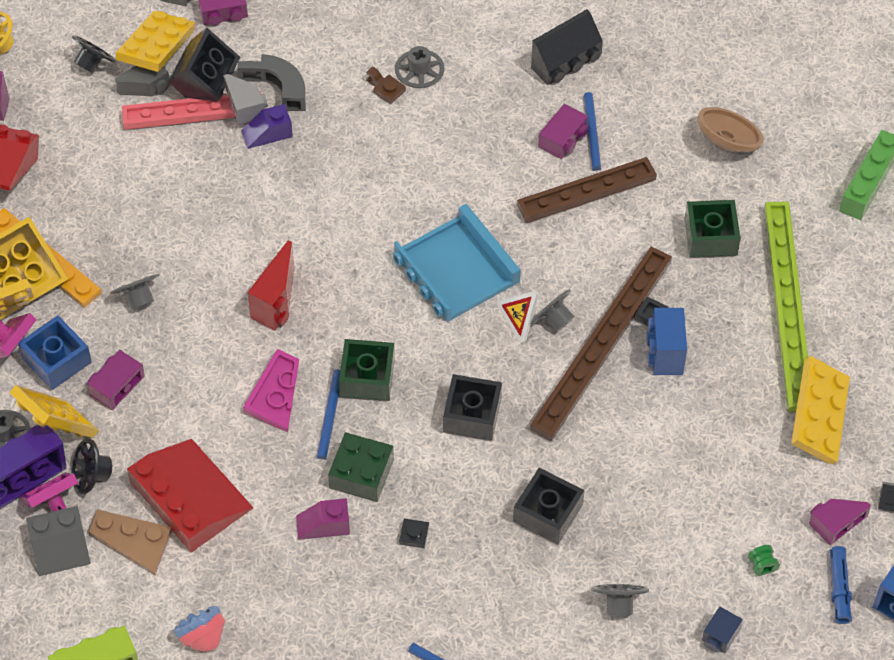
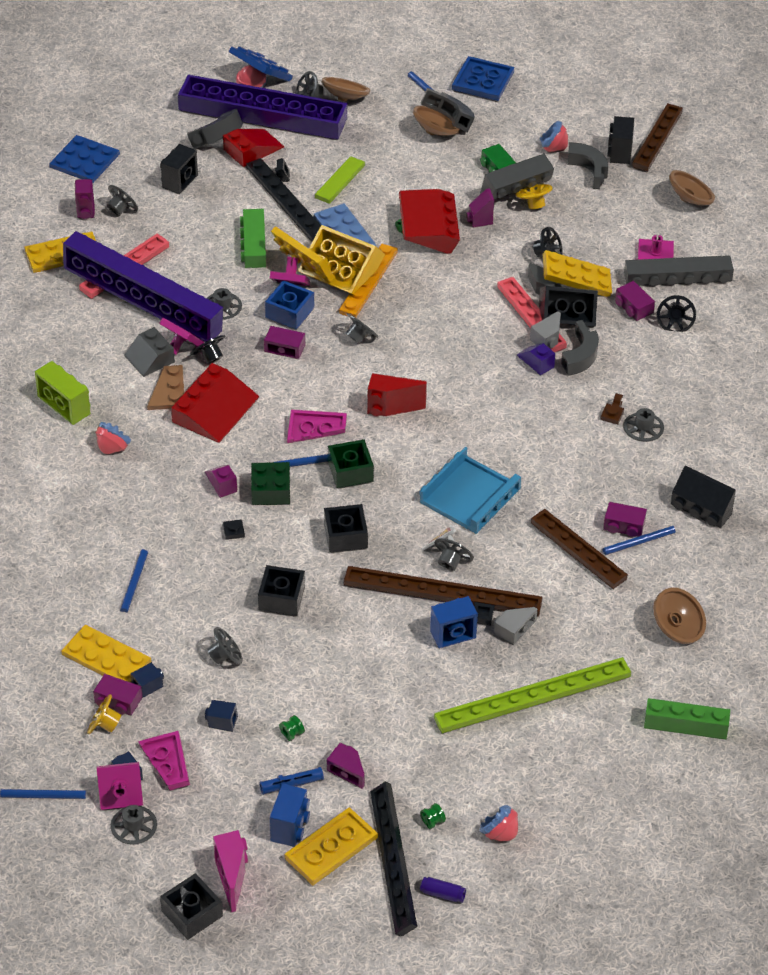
camera: 70 degrees right, 10 degrees down
(53, 412) = (233, 310): yellow plate -> none
(682, 287) = (514, 623): none -> light grey slope
(712, 228) = (576, 627): dark green brick -> none
(820, 410) = (439, 732): yellow plate -> none

